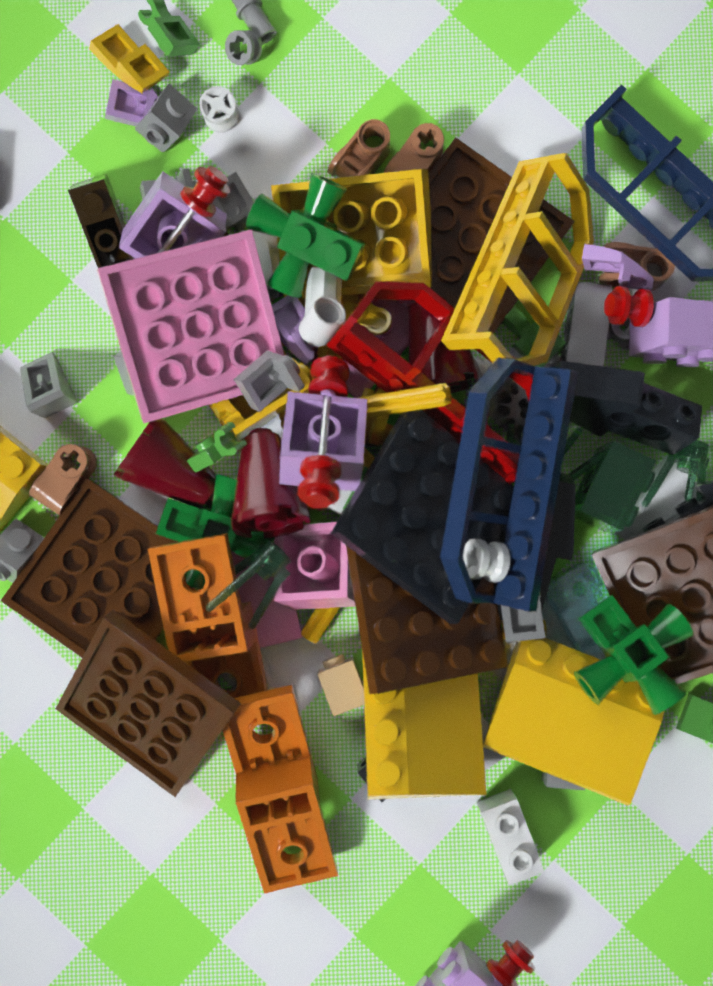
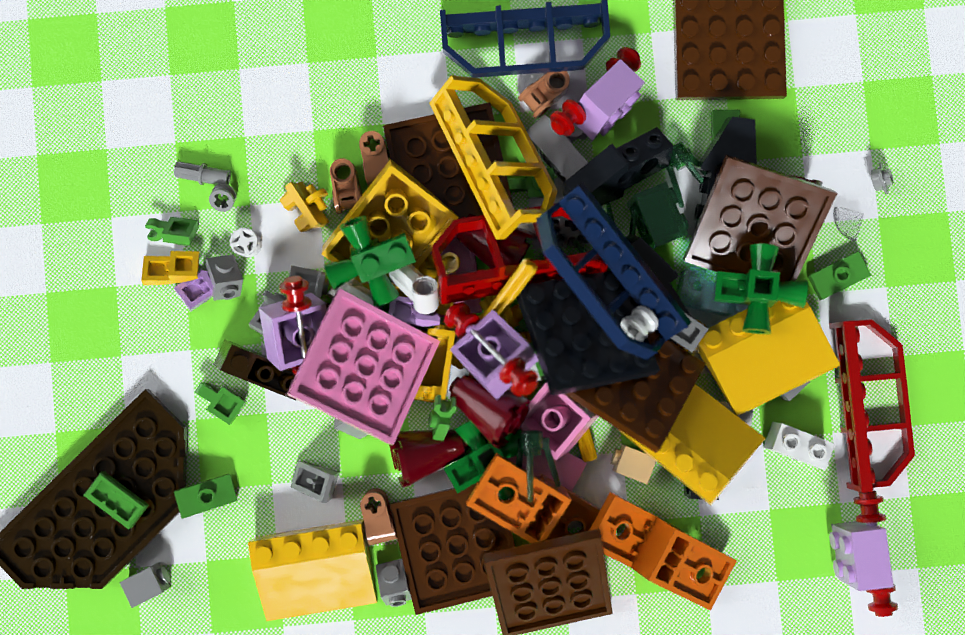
camera: 50 degrees left, 0 degrees up
(43, 228) = (223, 403): none -> bright green plate
(268, 379) = (430, 353): light grey bracket -> none
(313, 134) = (309, 203): none -> yellow hips
(591, 868) = (856, 418): none -> red plate
(610, 260) = (549, 100): lavender slope -> none

